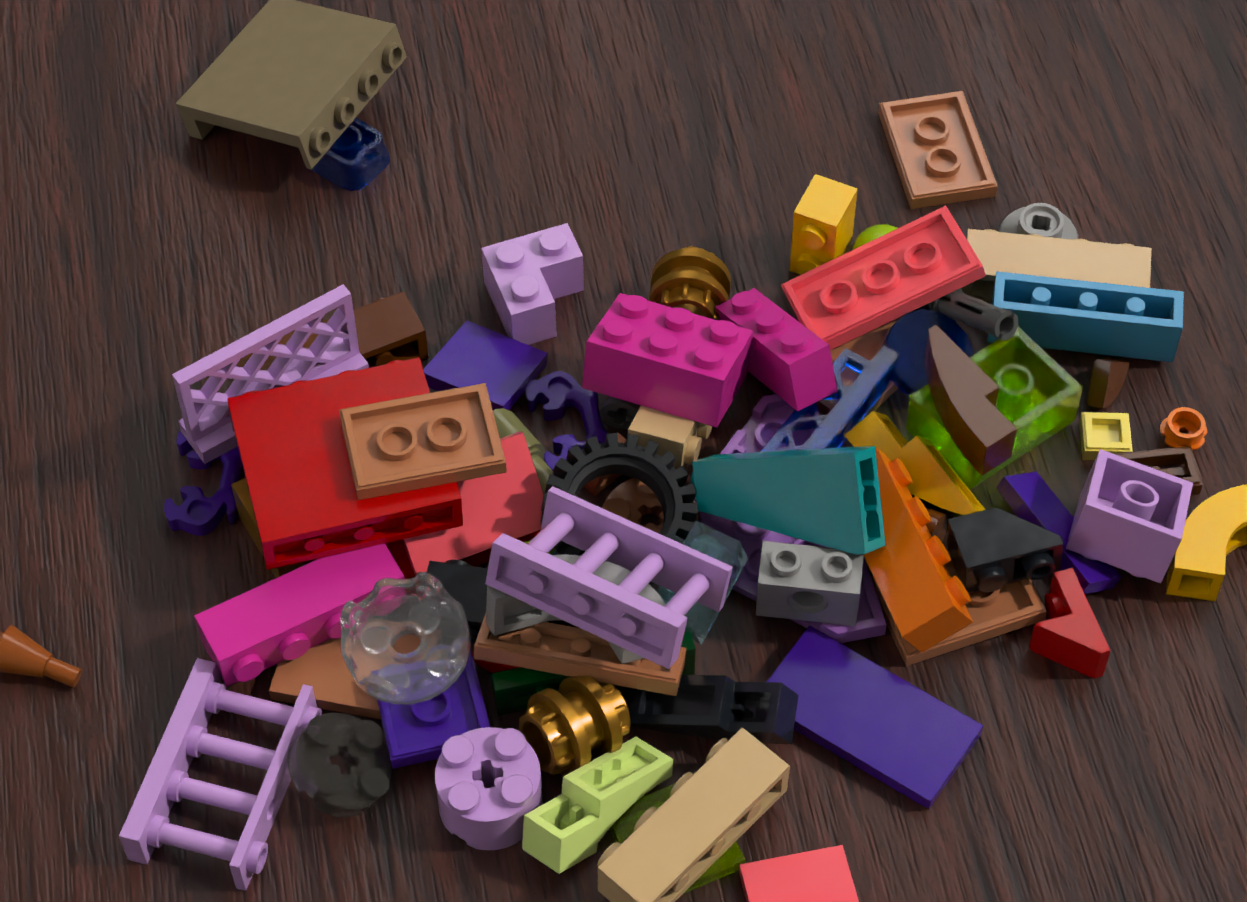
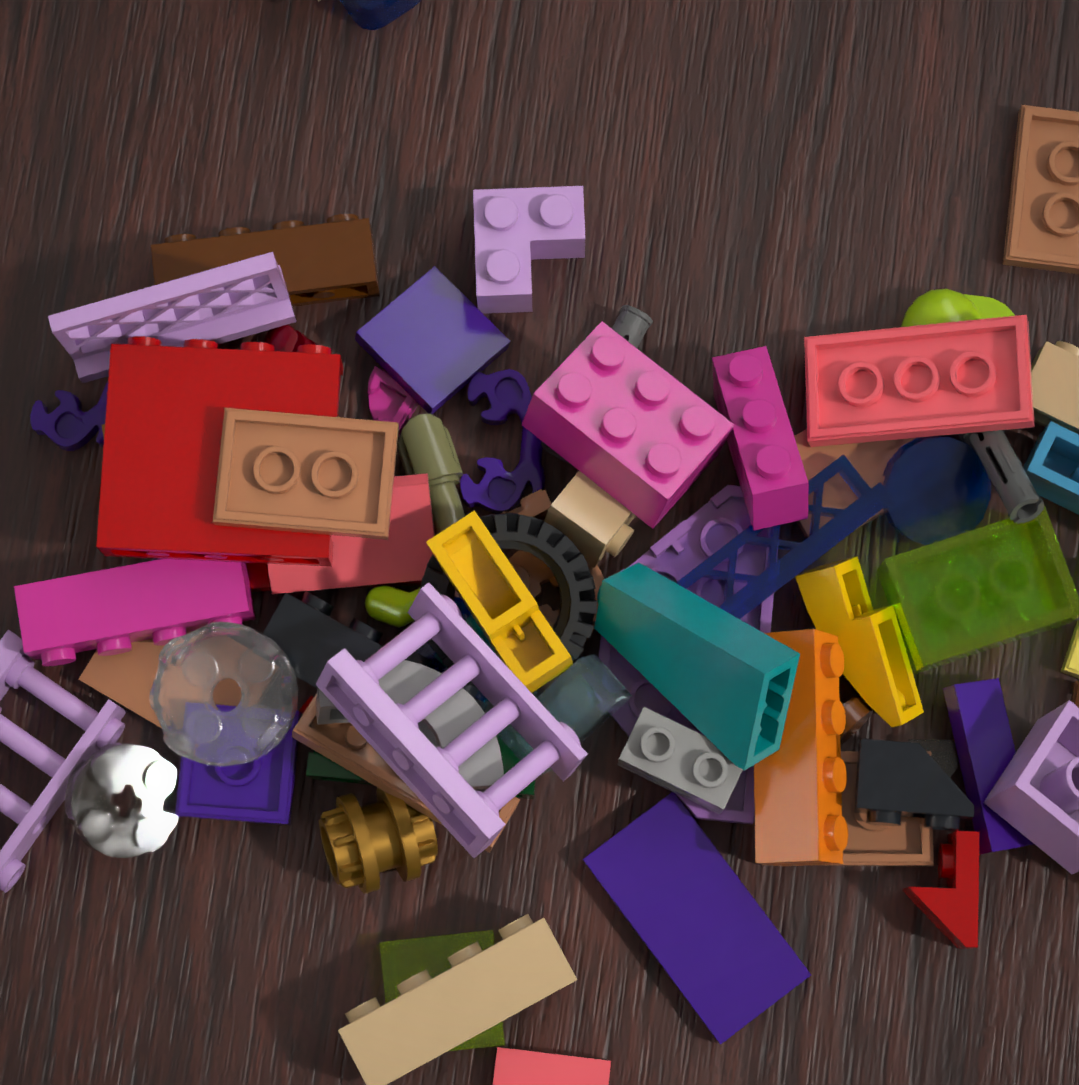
camera: 20 degrees right, 25 degrees up
(487, 786) = (248, 851): lavender brick -> none
(591, 802) = (371, 930): yellowish green slope -> none
(614, 486) = (500, 602): none -> yellow slope
(691, 281) = (693, 319): pearl gold piece -> none
(718, 709) = (549, 872): black slope -> none
(822, 224) = (876, 285): yellow brick -> none
(967, 403) = (935, 602): reddish brown slope -> none

